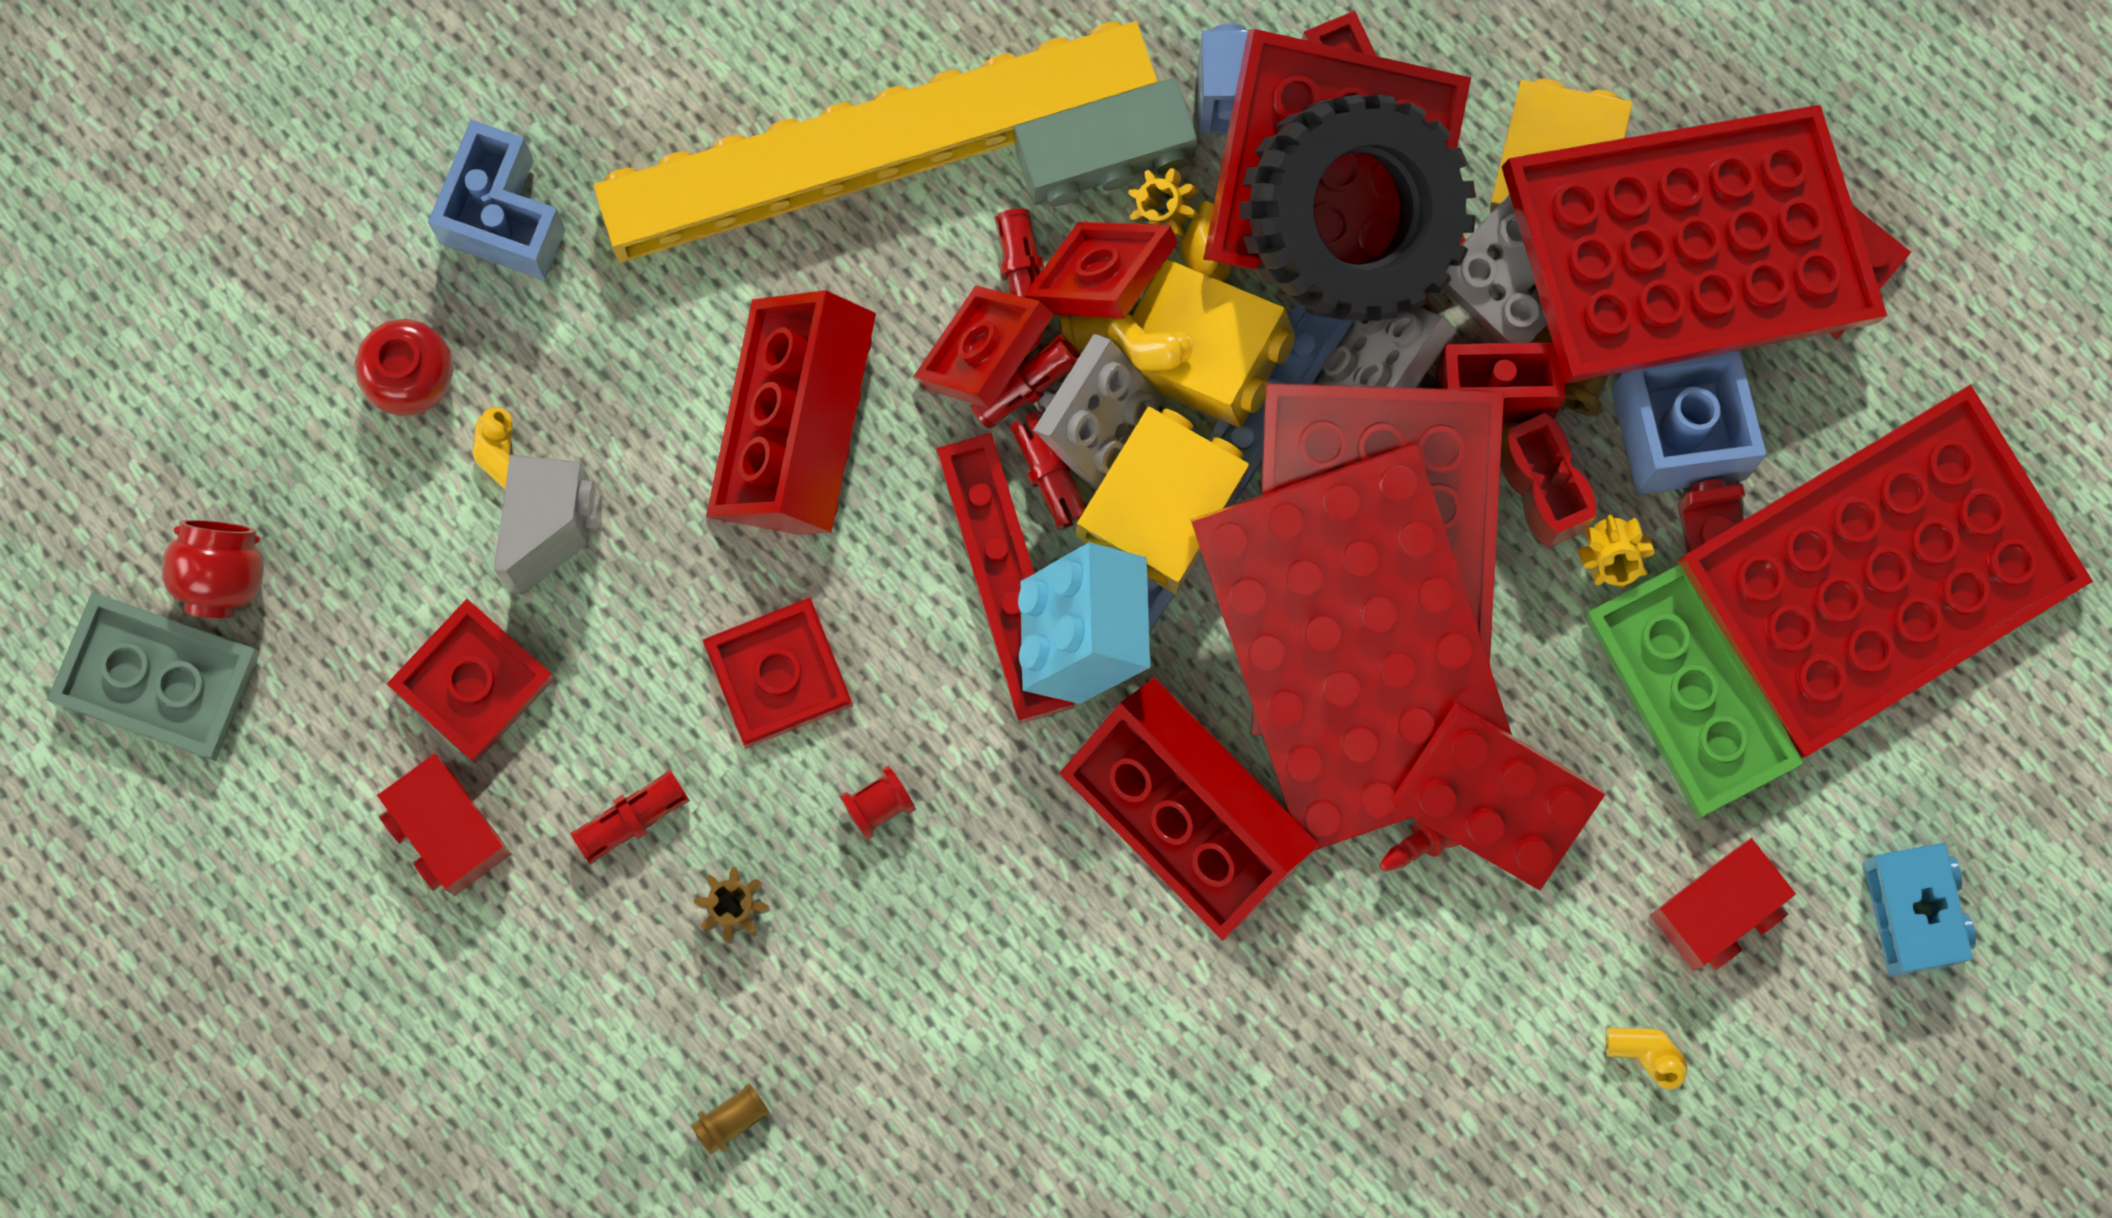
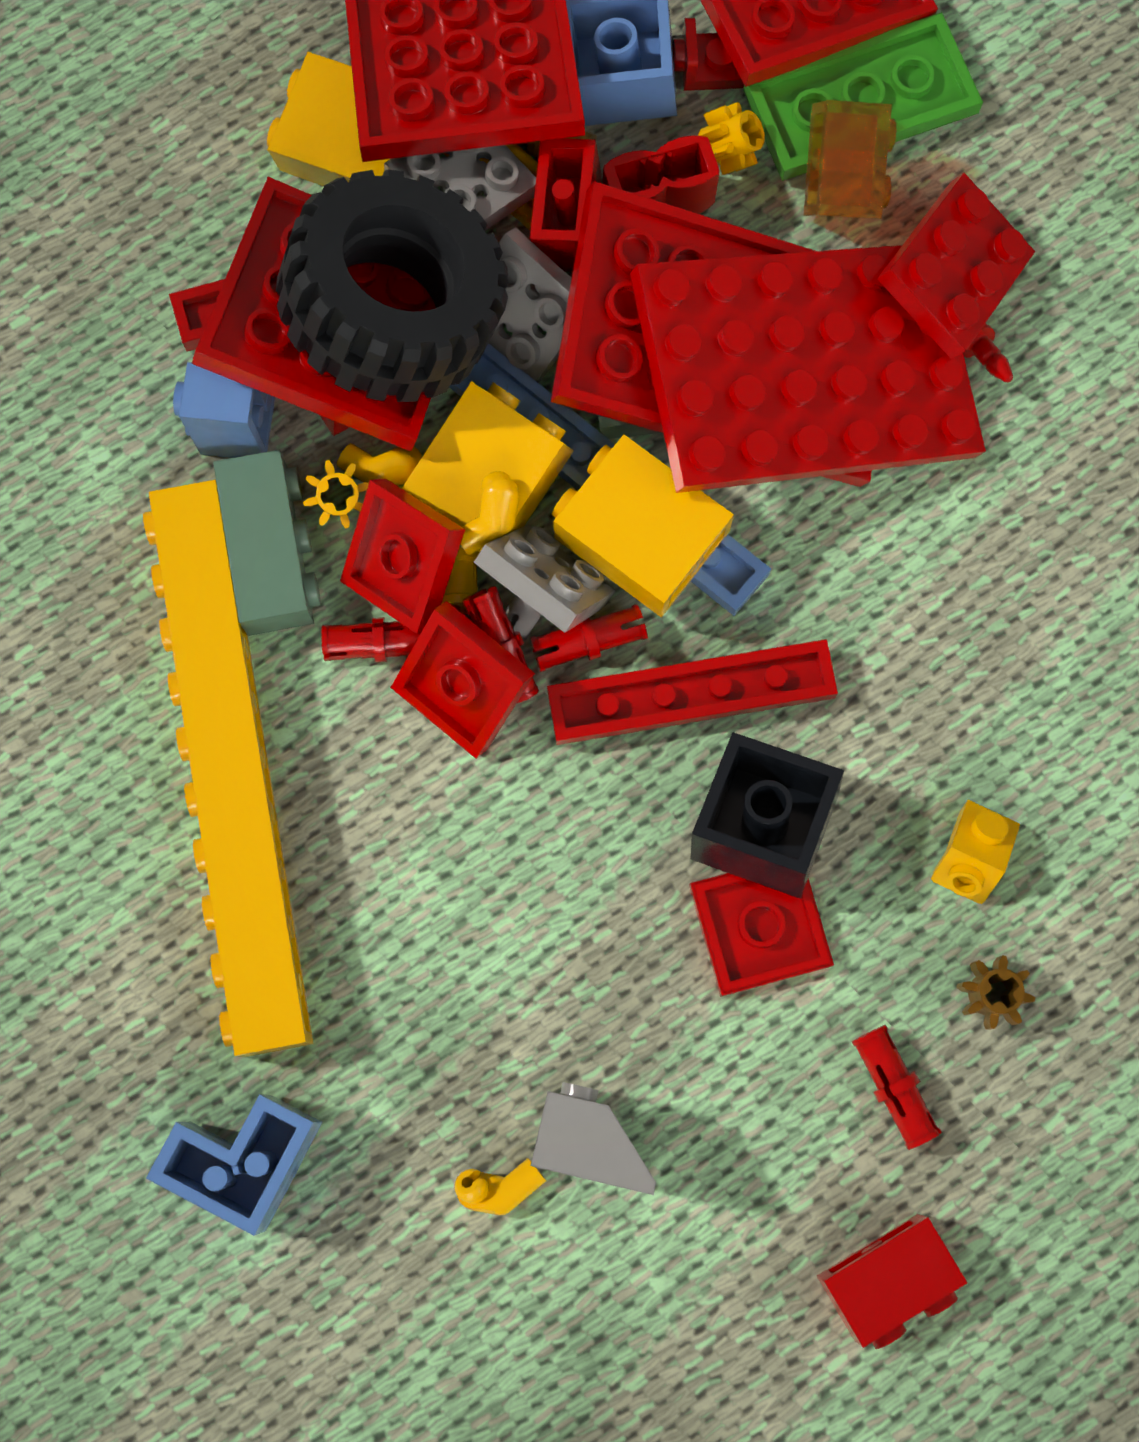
camera: 80 degrees left, 0 degrees up
(404, 367) = (402, 1279): red piece -> none
(471, 681) = (741, 1239): red plate -> none
(792, 413) = (500, 880): red slope -> none
(874, 877) = (976, 852): none -> yellow bracket
(877, 802) = (904, 839): red bush -> none
(880, 654) = (766, 814): none -> black brick
(1084, 623) = (763, 608): medium azure brick -> none
(1188, 808) = (936, 546): red slope -> none
(1601, 671) = (849, 159): none -> clear orange brick
(1723, 906) = (1063, 98): red brick -> none

